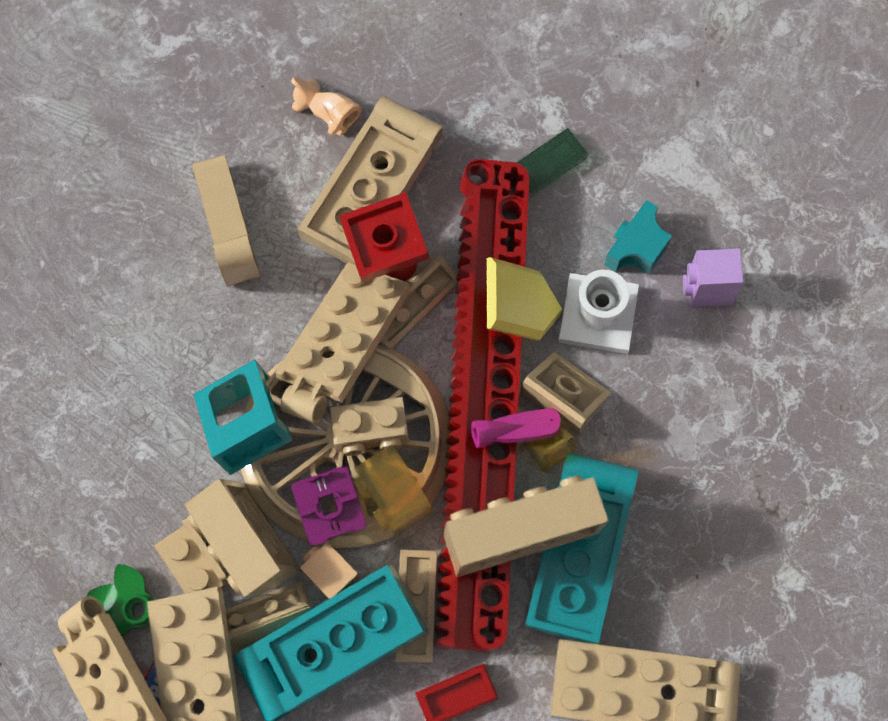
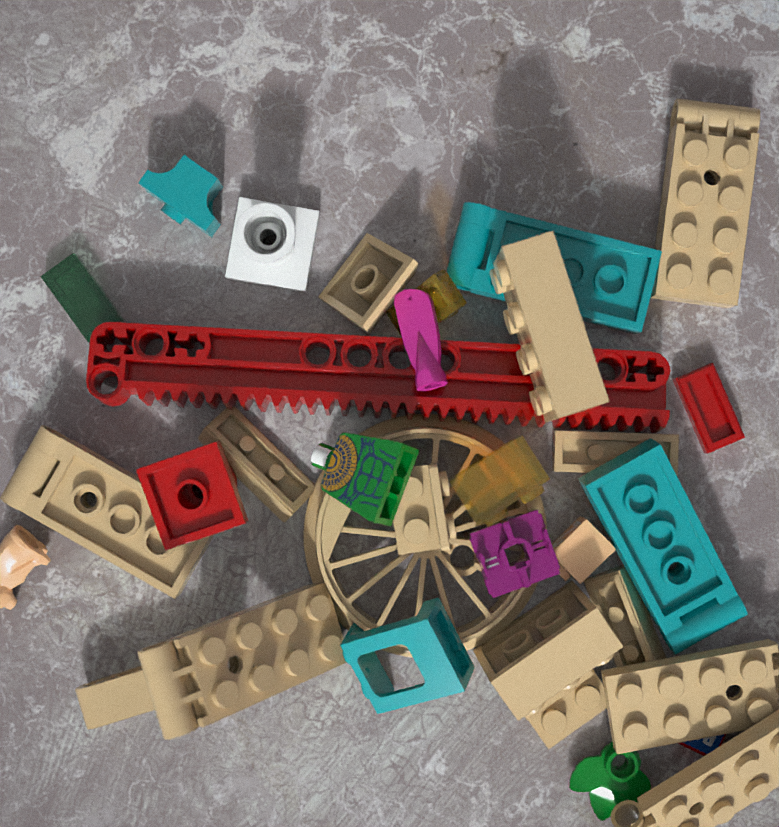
camera: 90 degrees left, 15 degrees up
(253, 297) = (267, 652): none -> tan hinge
(351, 326) = (298, 532): tan hinge -> none
(398, 377) = (366, 474): none -> green torso
(519, 300) = (267, 335): light yellow tile -> none
(713, 277) = (236, 106): lavender brick -> none

